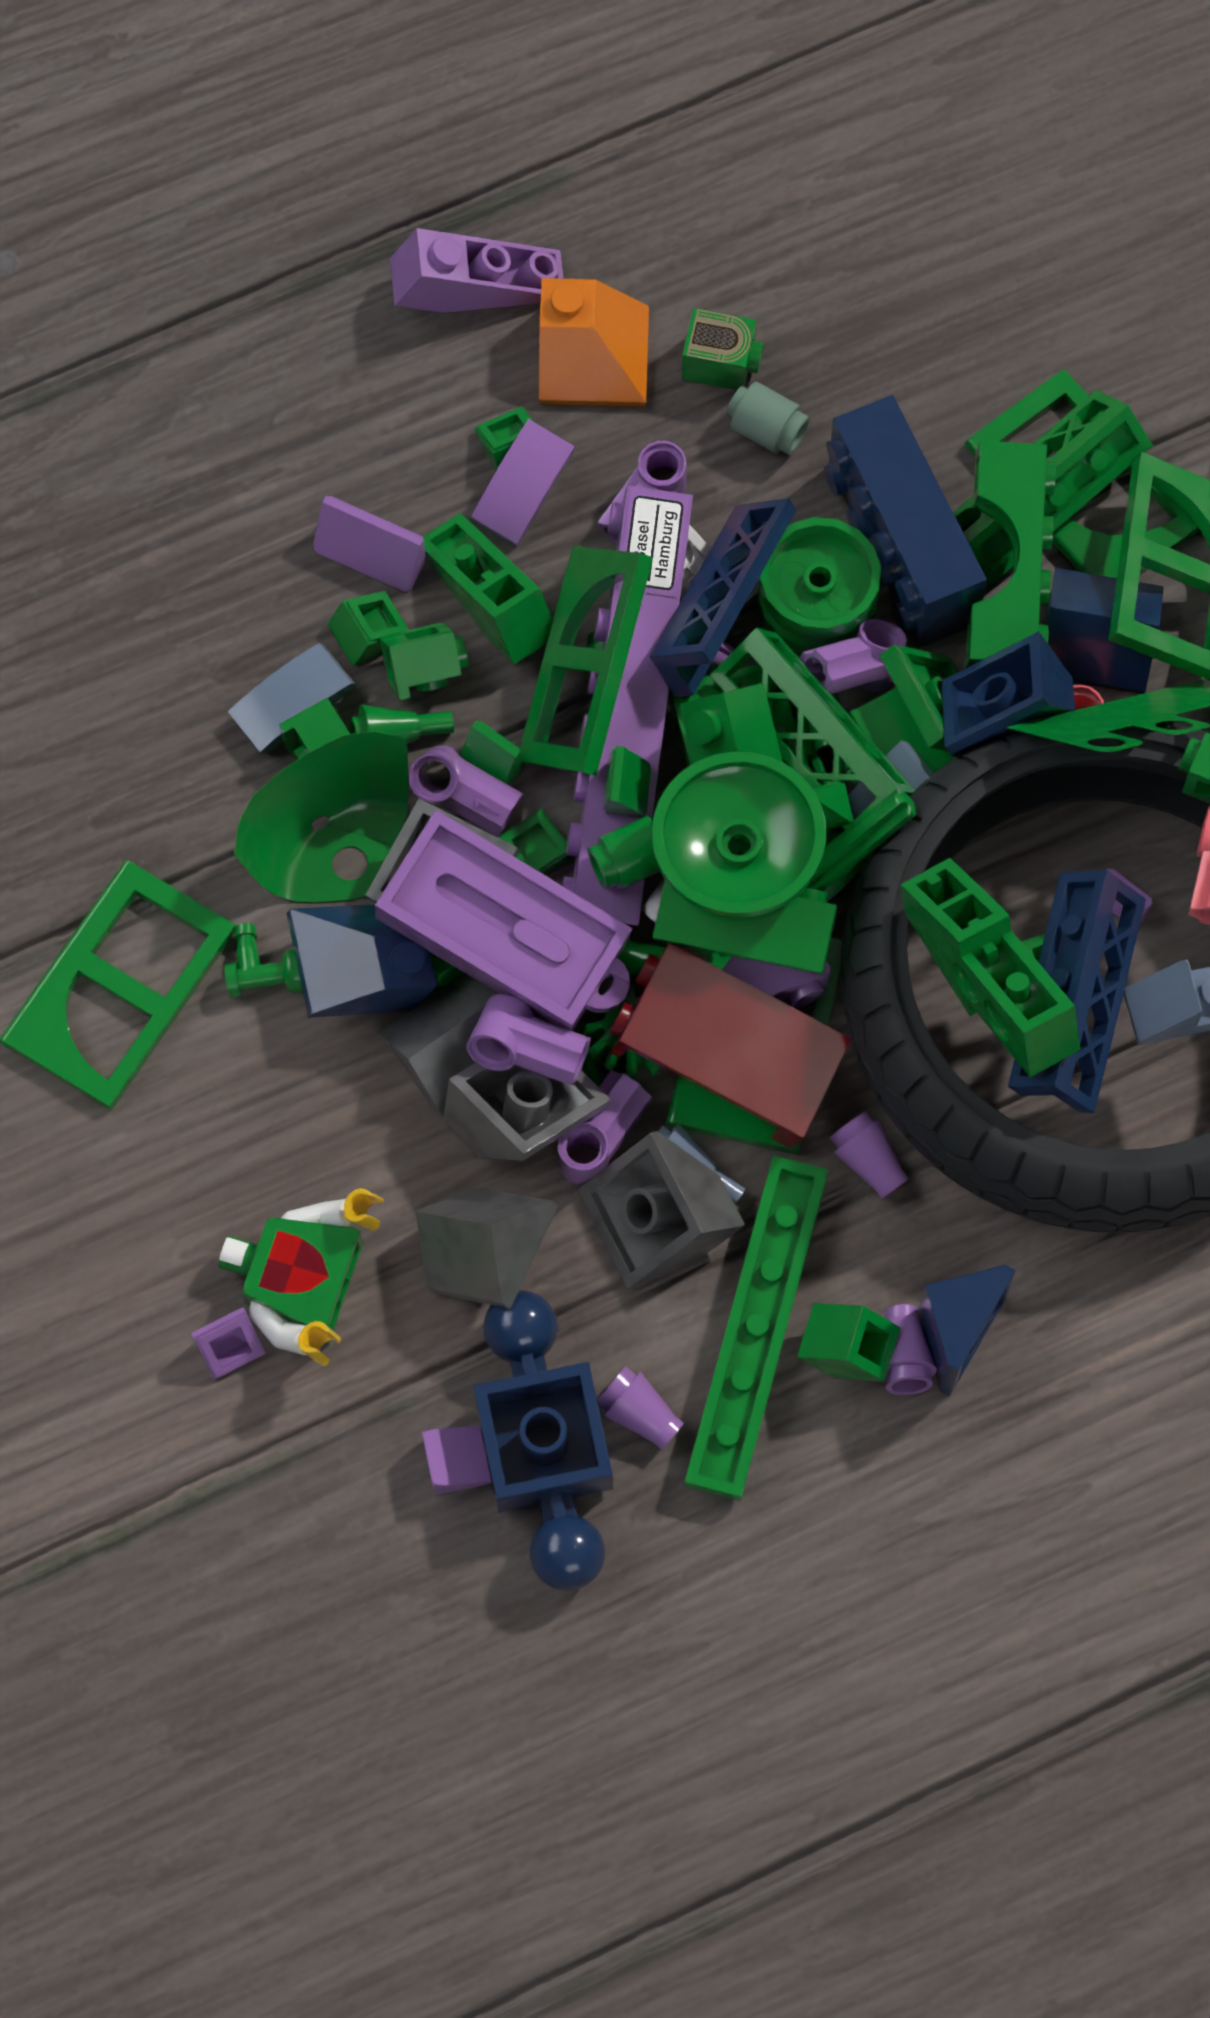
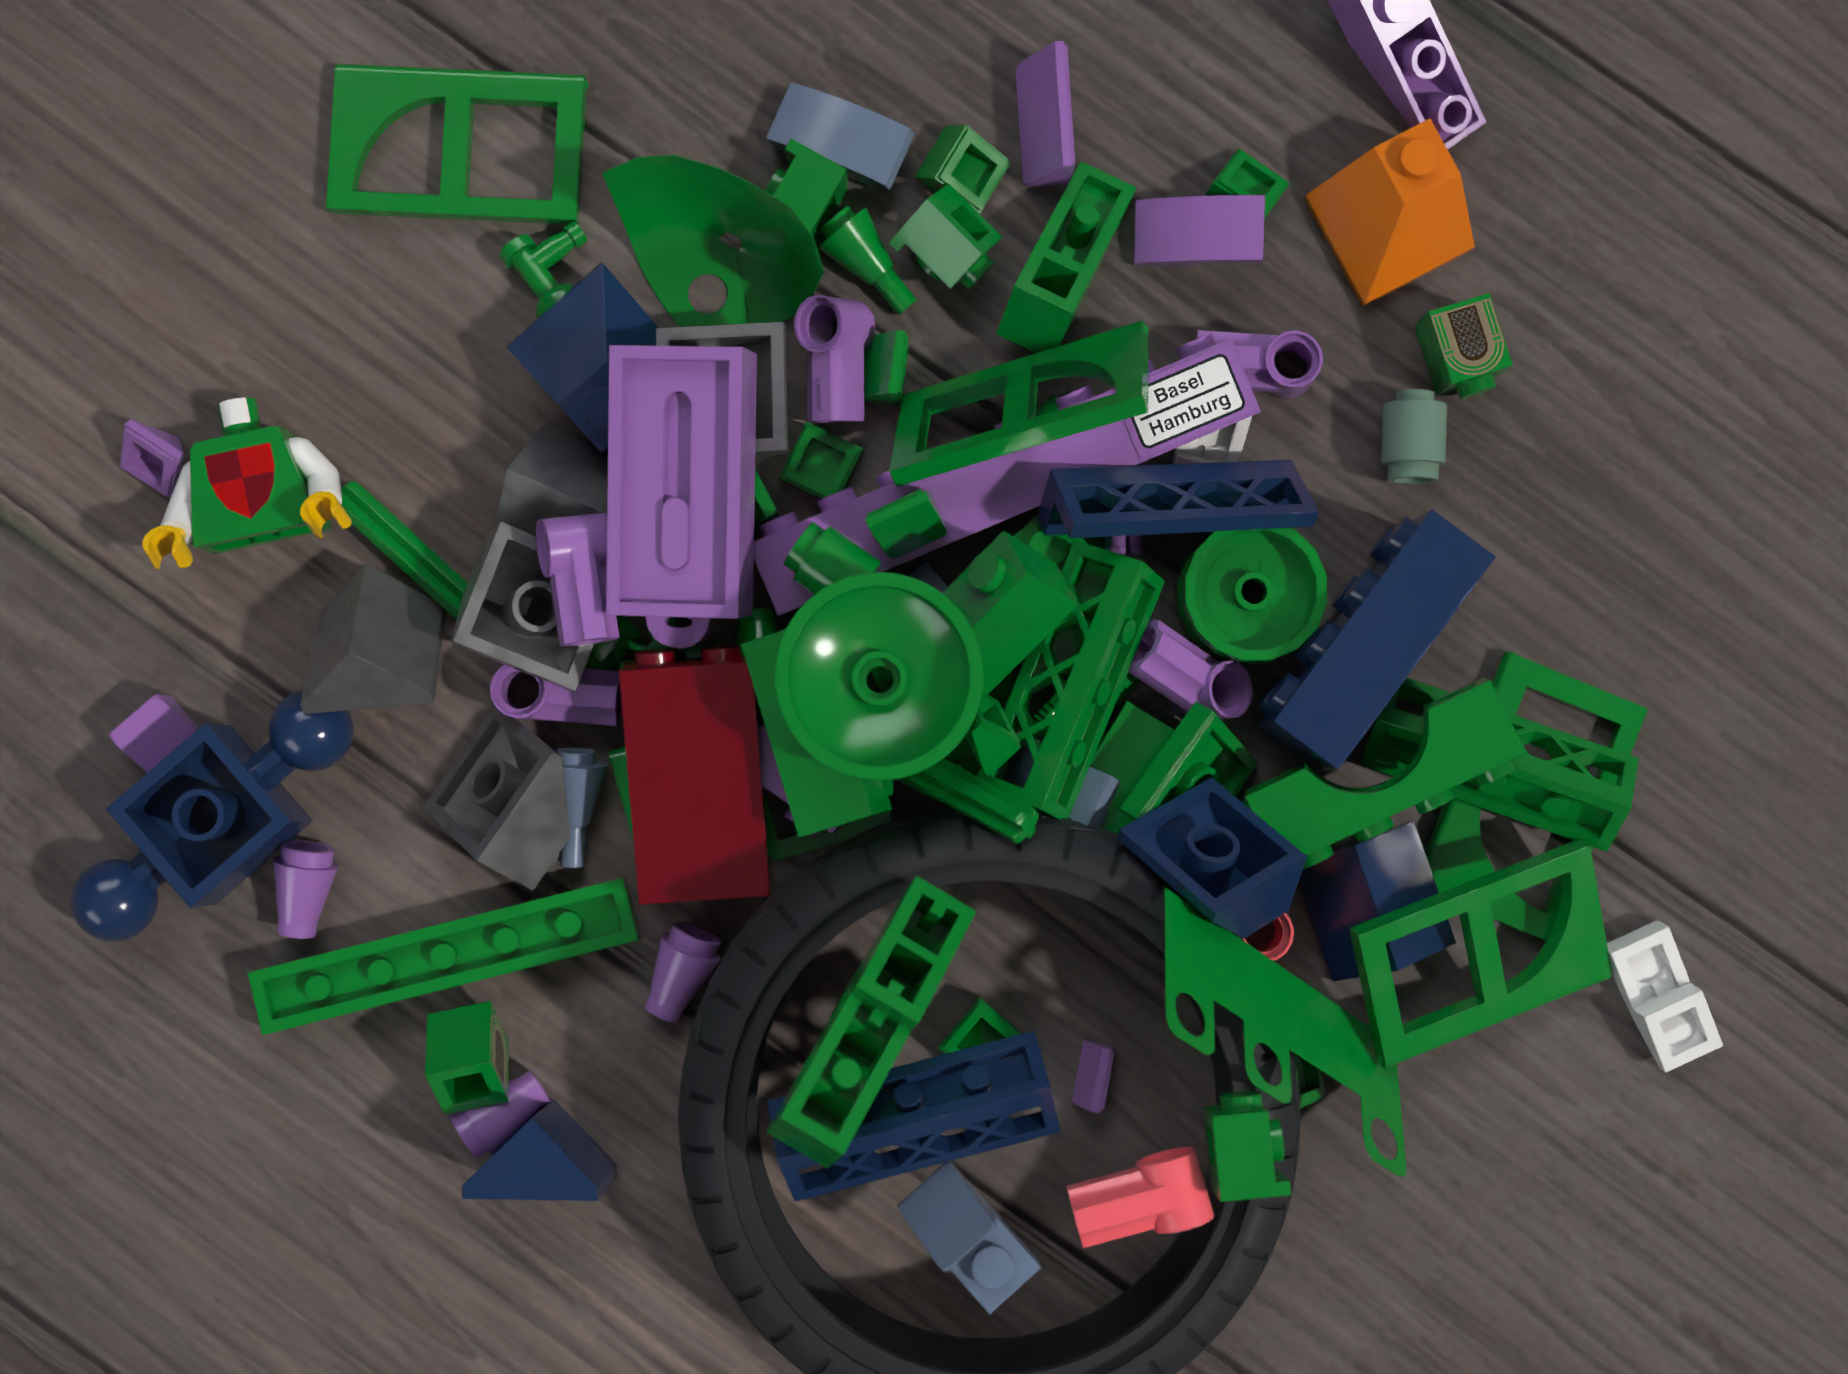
camera: 60 degrees right, 15 degrees up
(450, 1180) = (403, 547): none -> green axle

